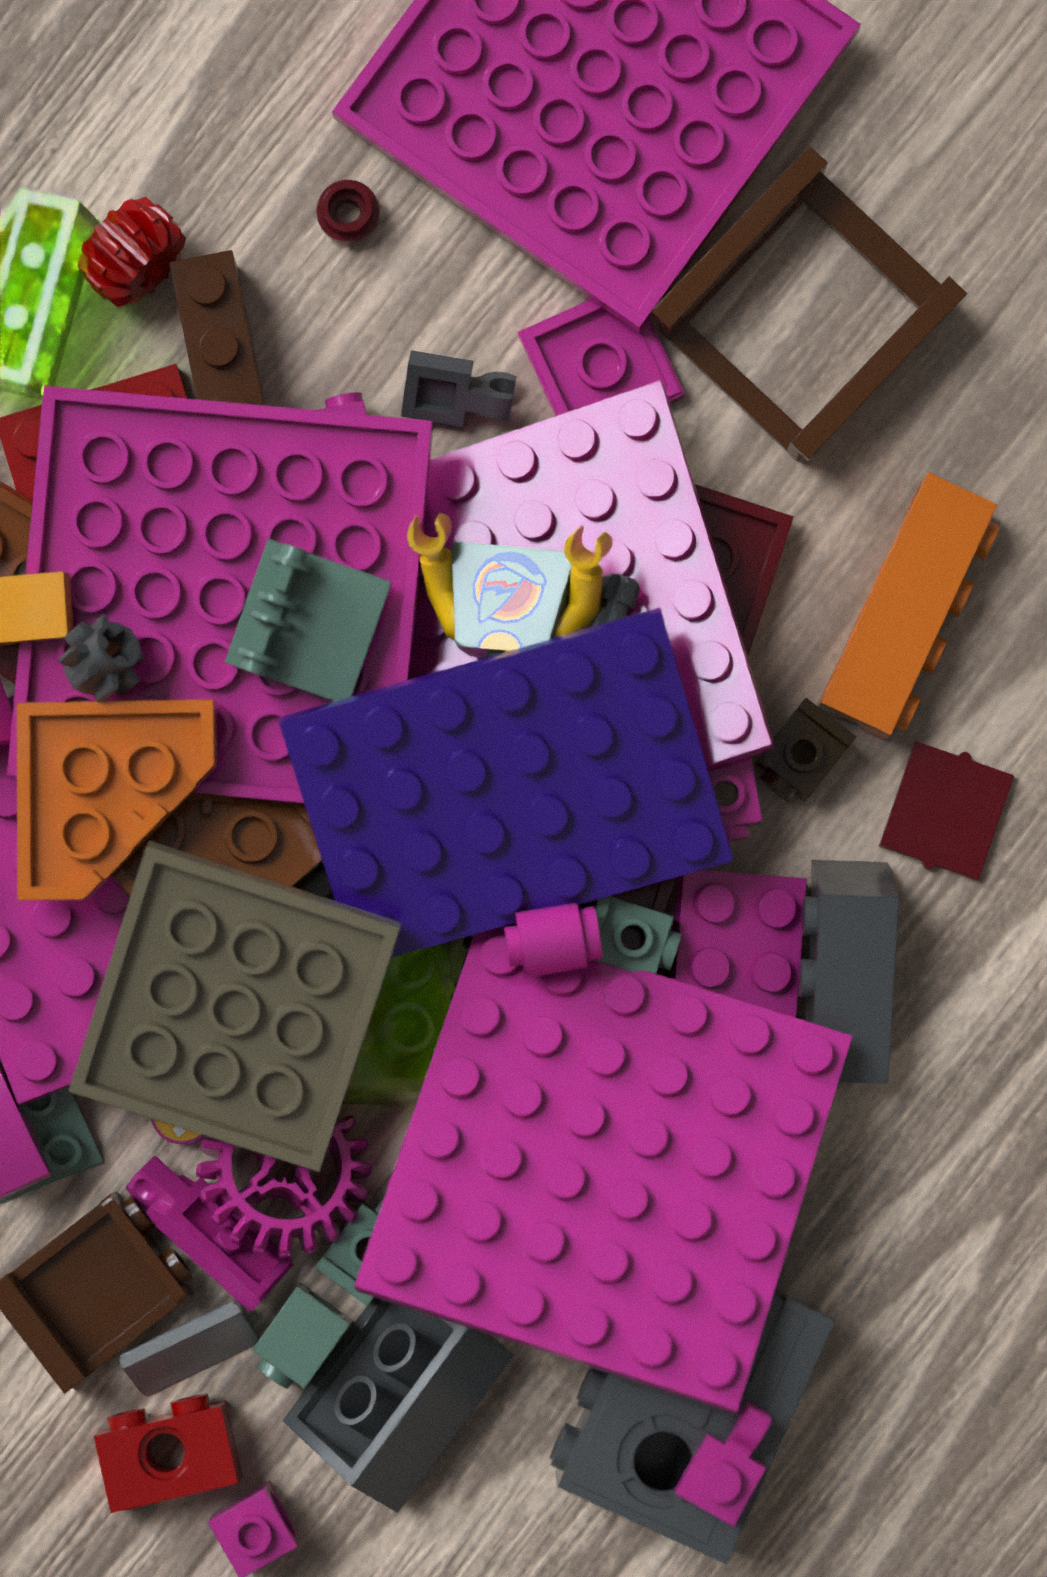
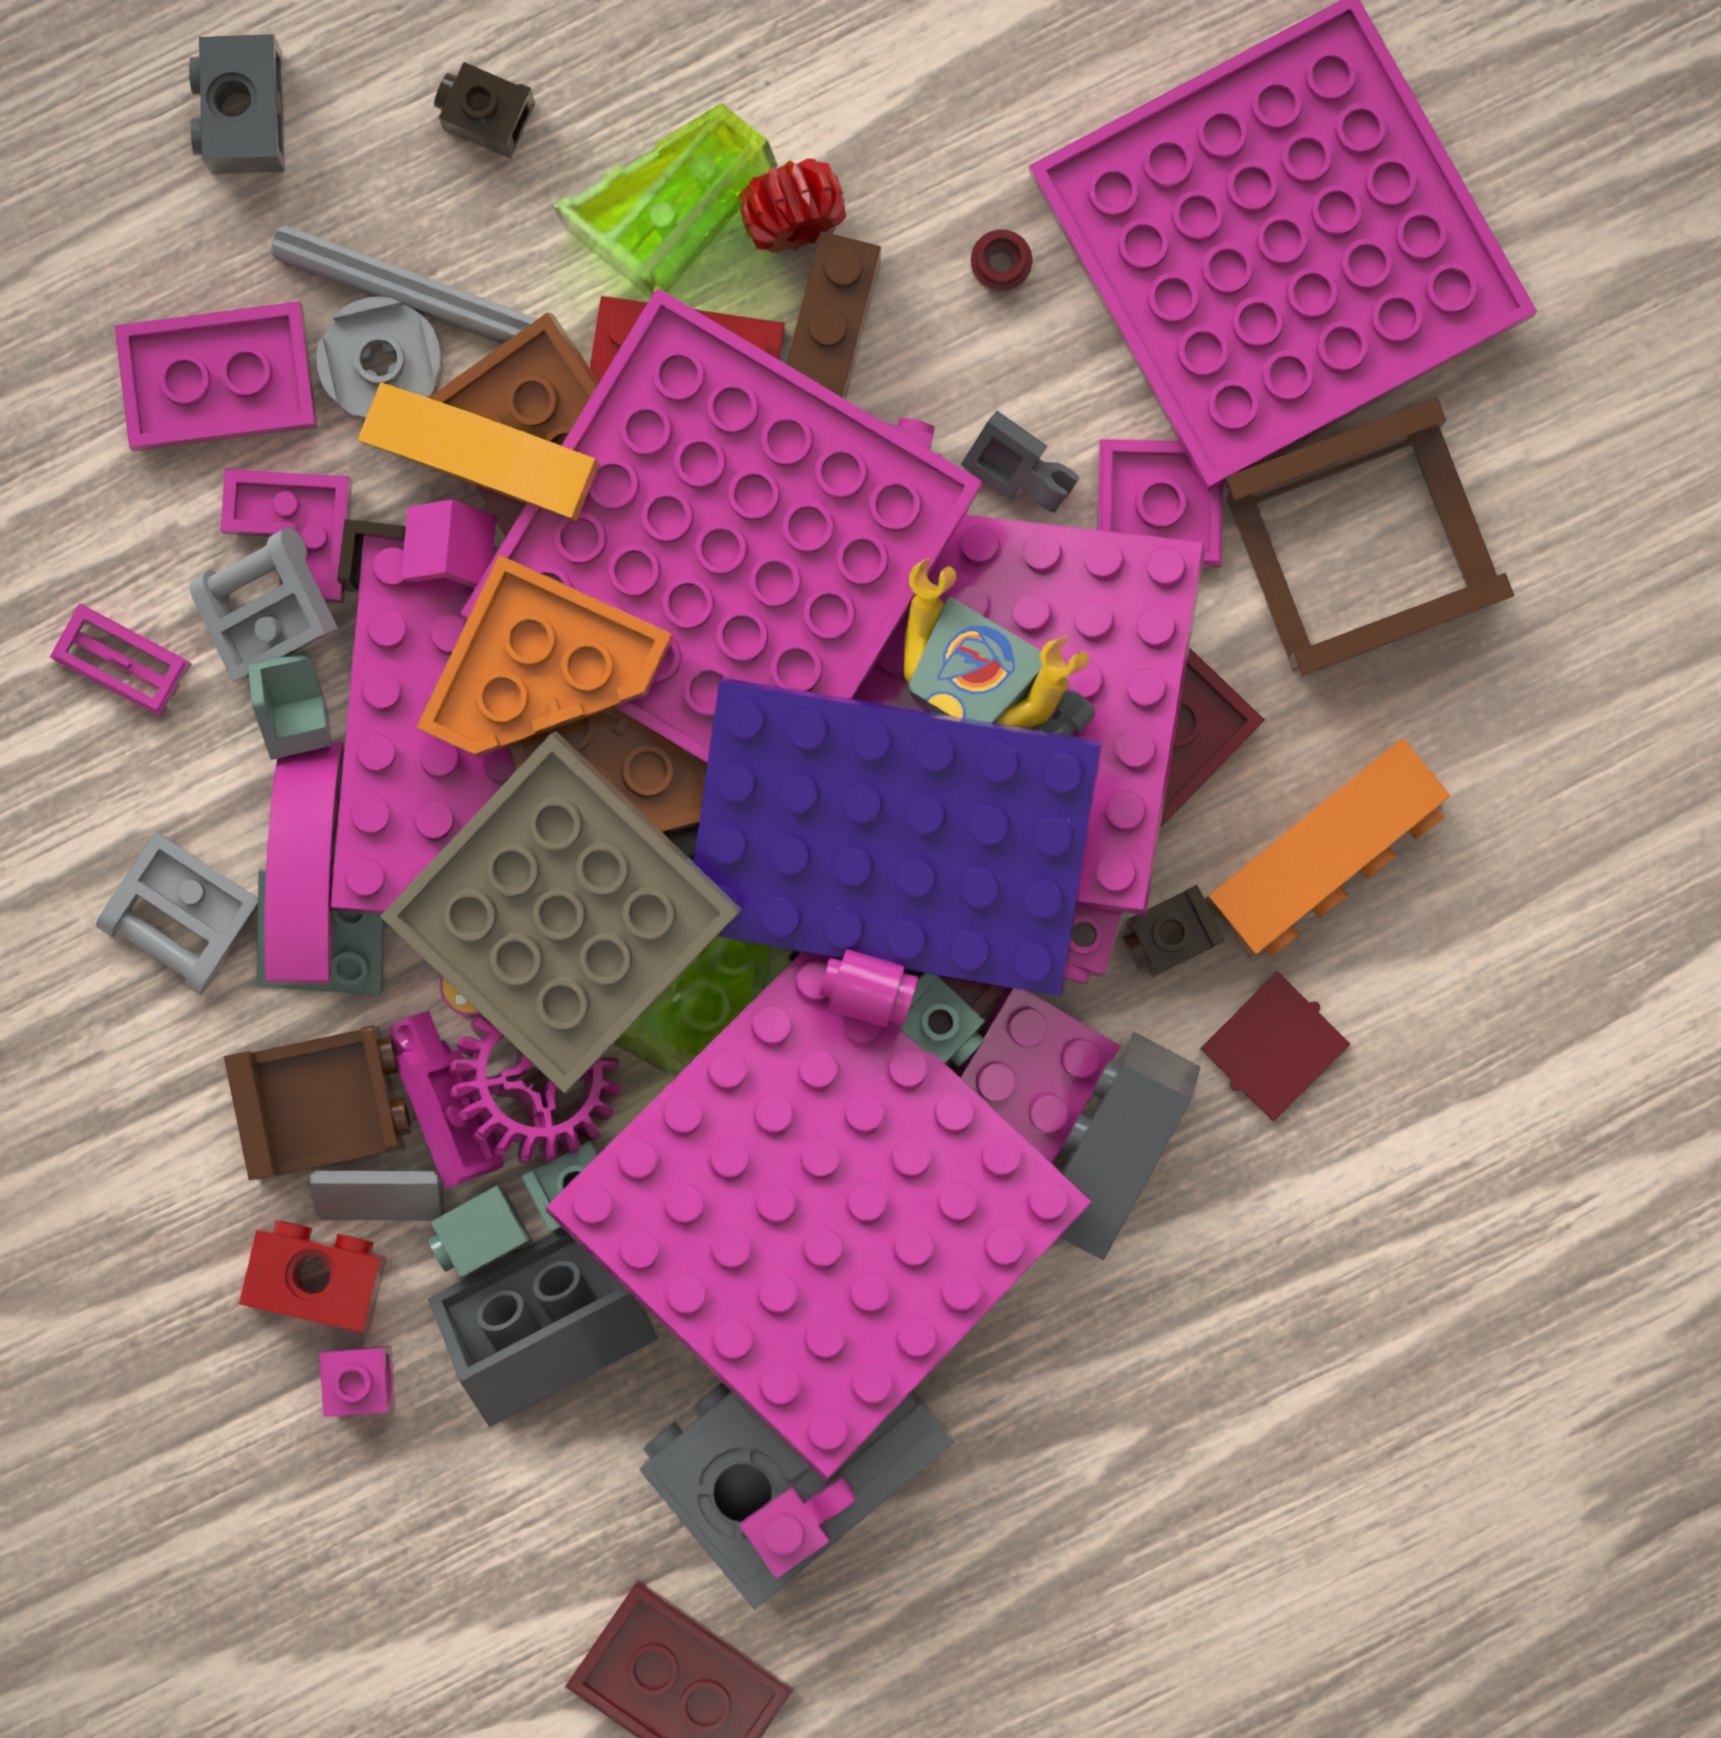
camera: 30 degrees right, 0 degrees up
(101, 658) = (591, 551): dark grey gear -> none
(308, 621) = (788, 605): sand green hinge -> none

